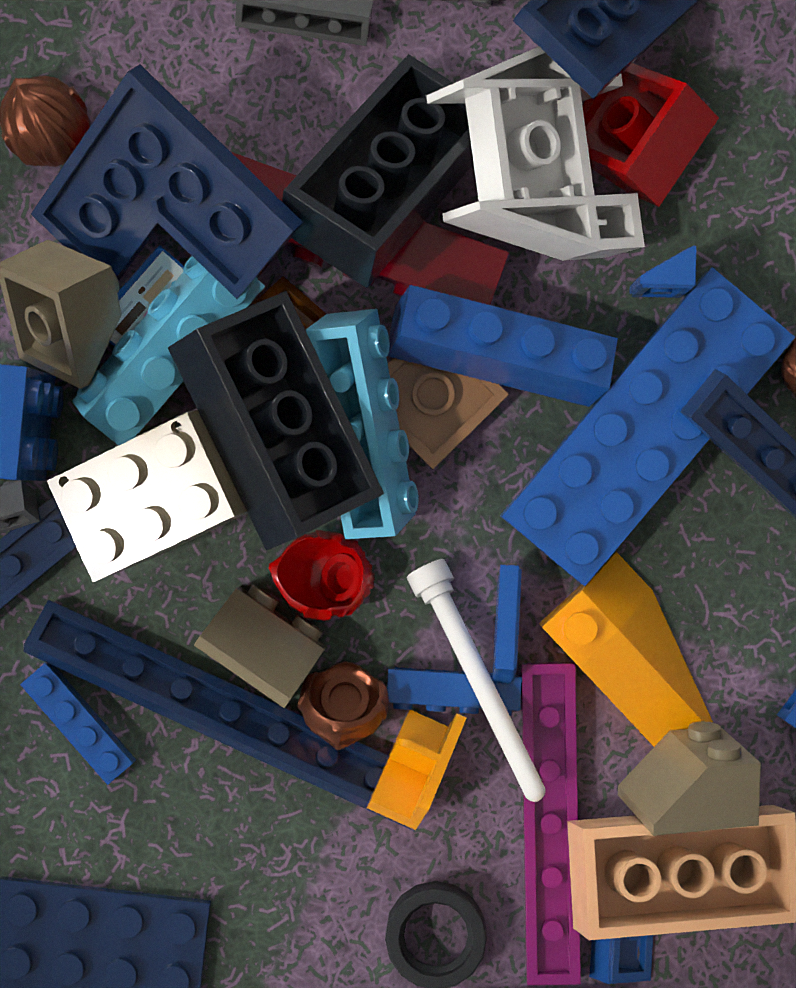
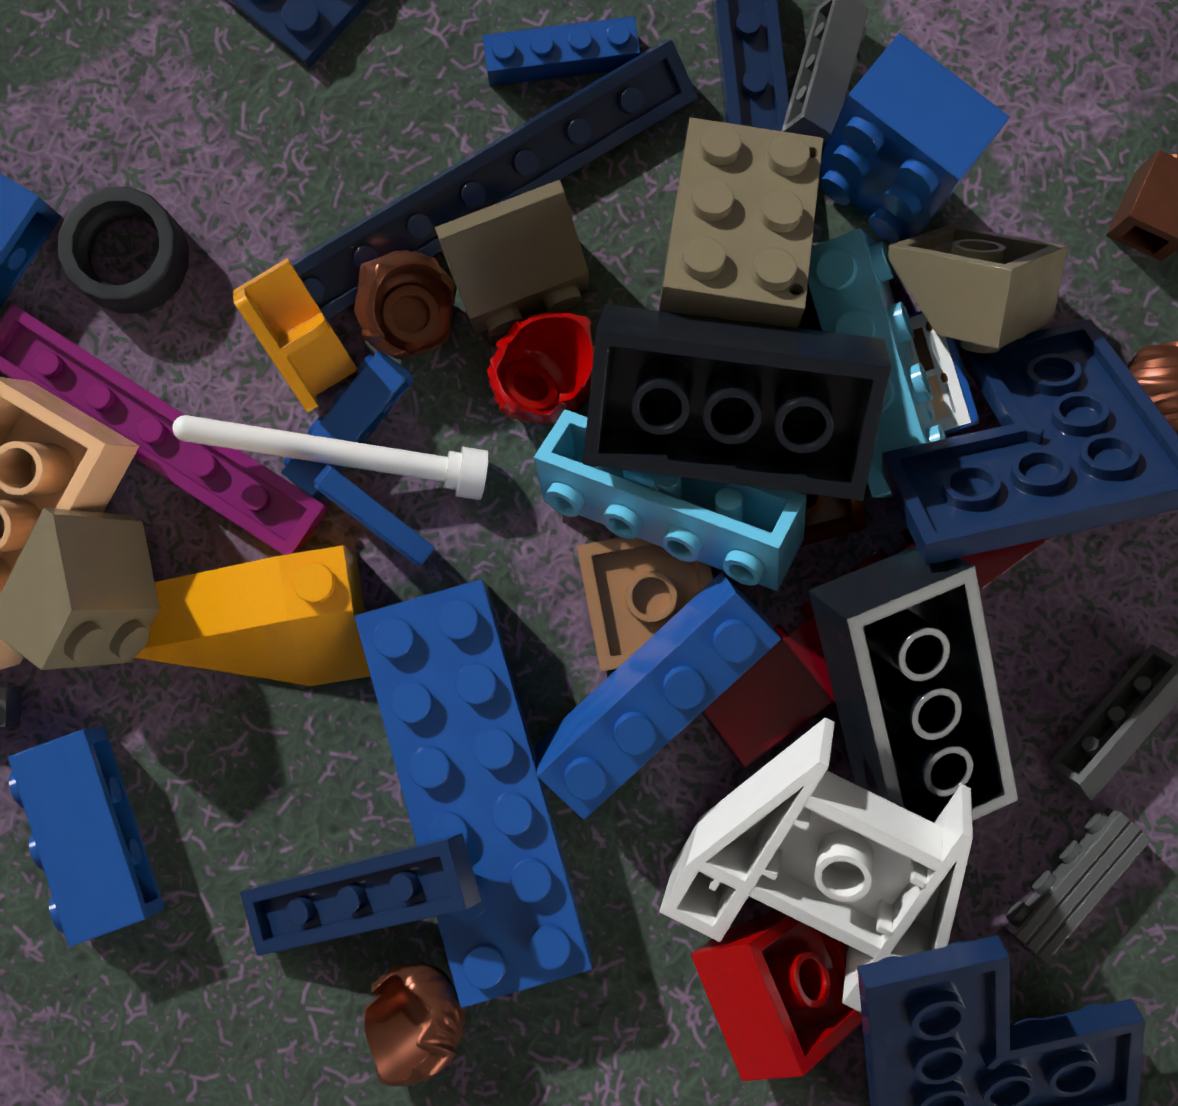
camera: 120 degrees right, 5 degrees down
(668, 279) = (609, 917): blue slope -> none

